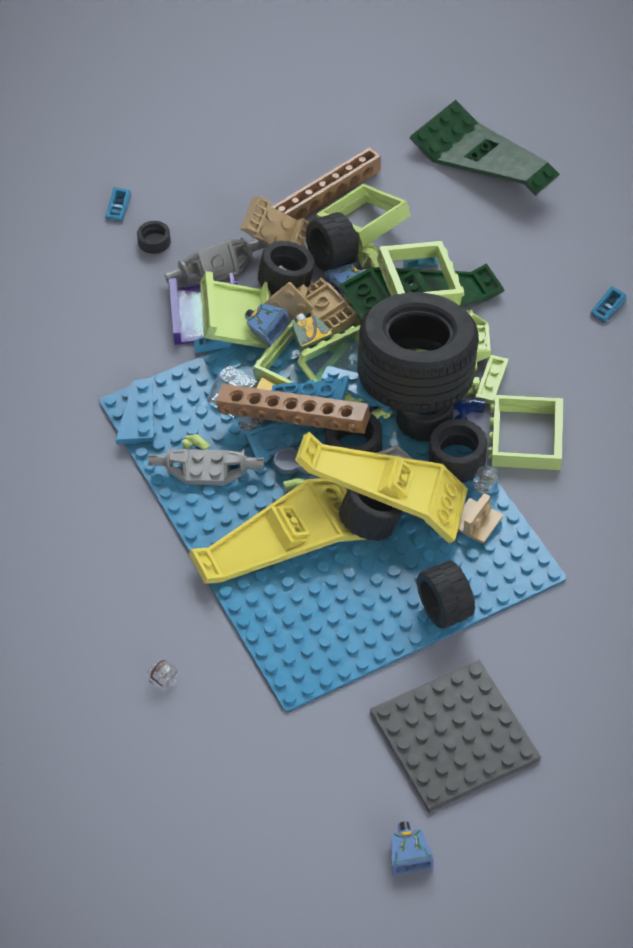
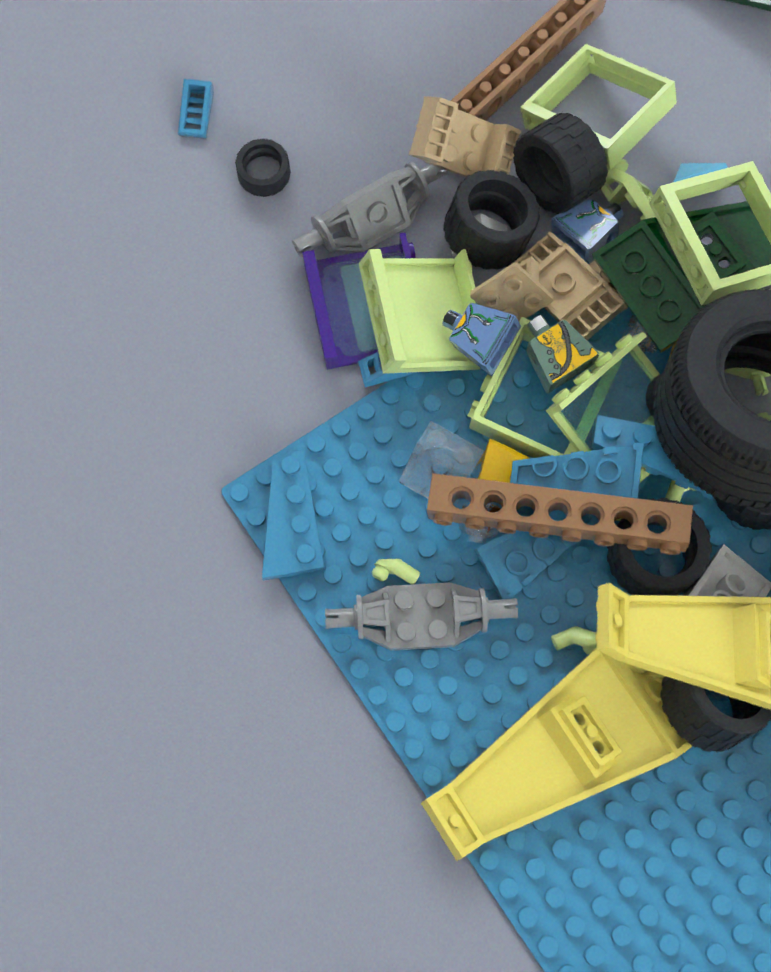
camera: 10 degrees left, 20 degrees up
(285, 461) = (556, 594): sand blue piece -> none

